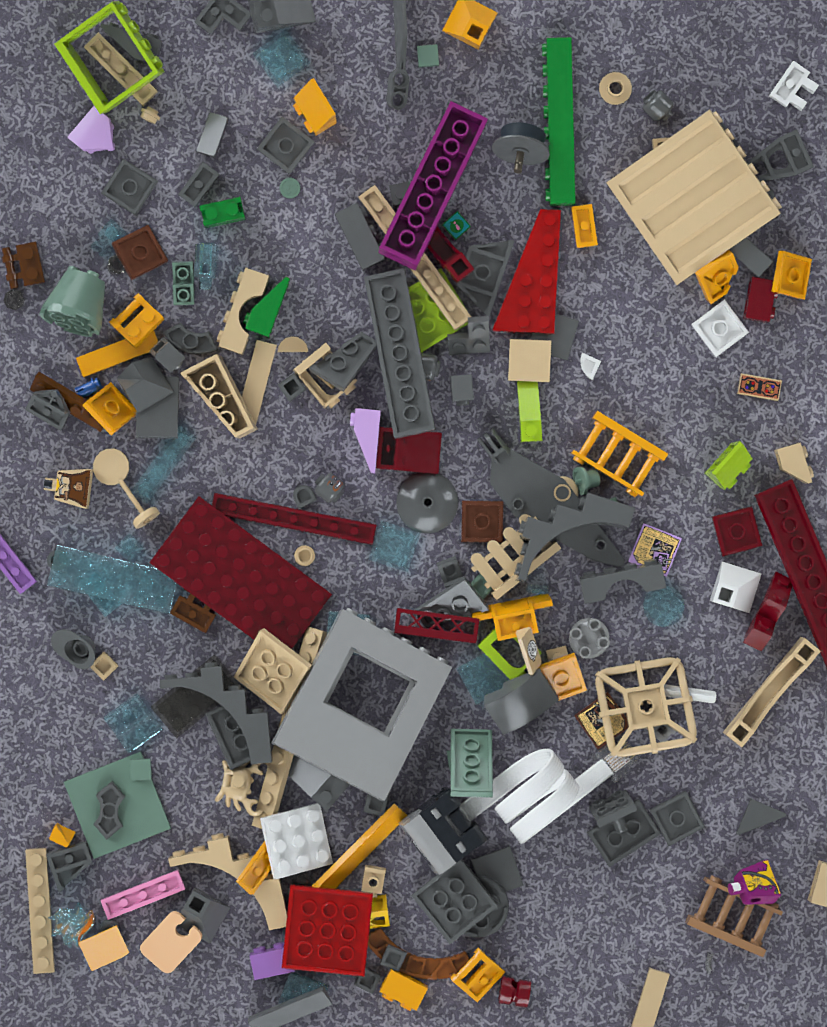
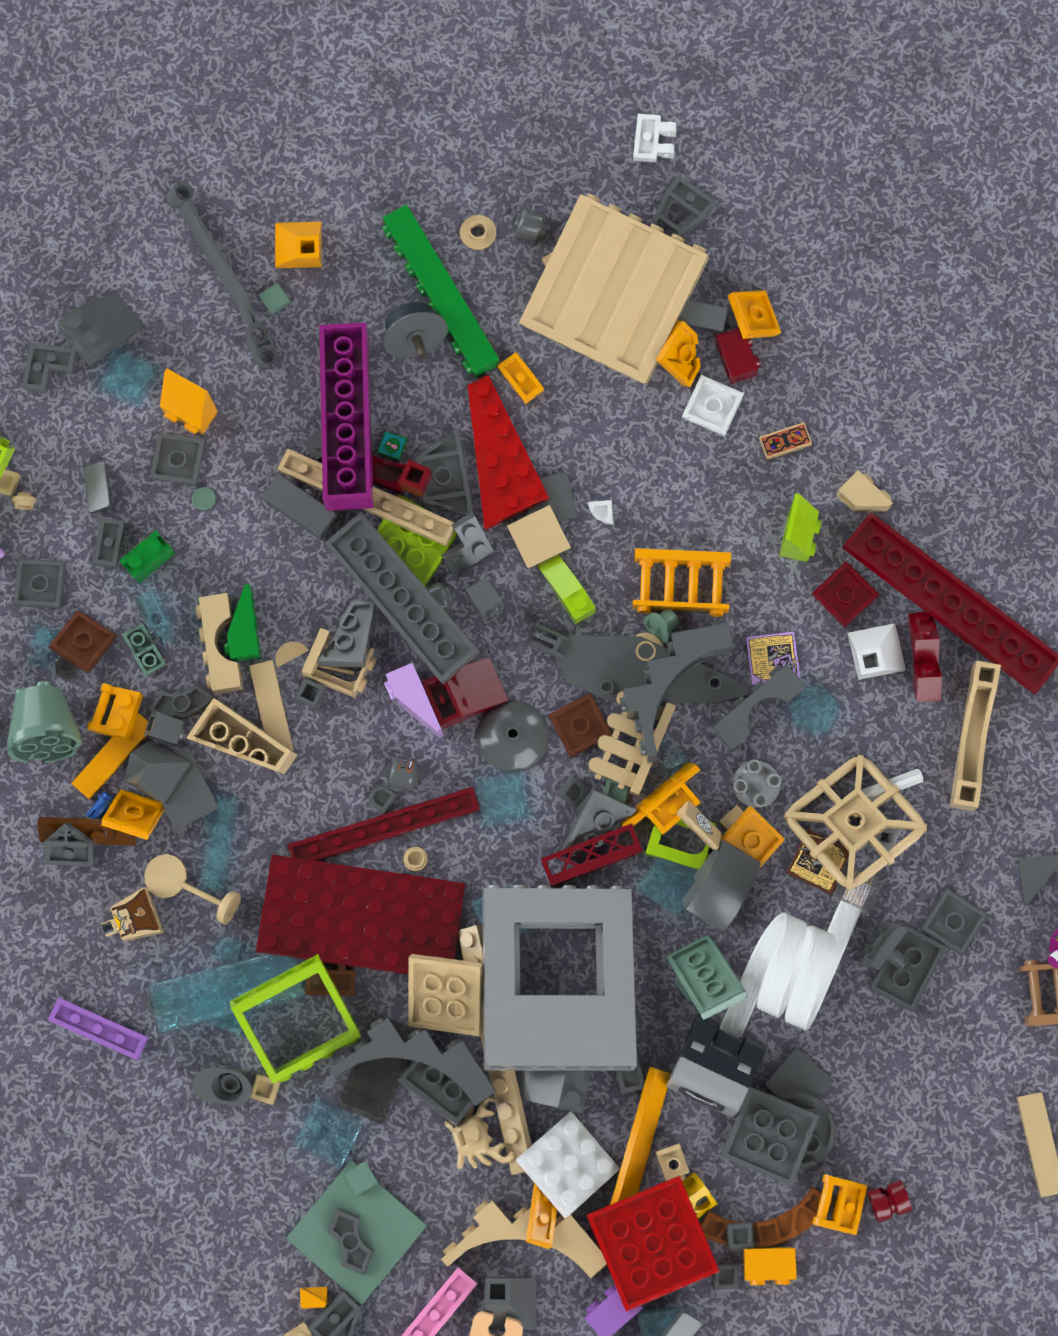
camera: 25 degrees left, 10 degrees down
(153, 598) = (277, 985): none -> lime window

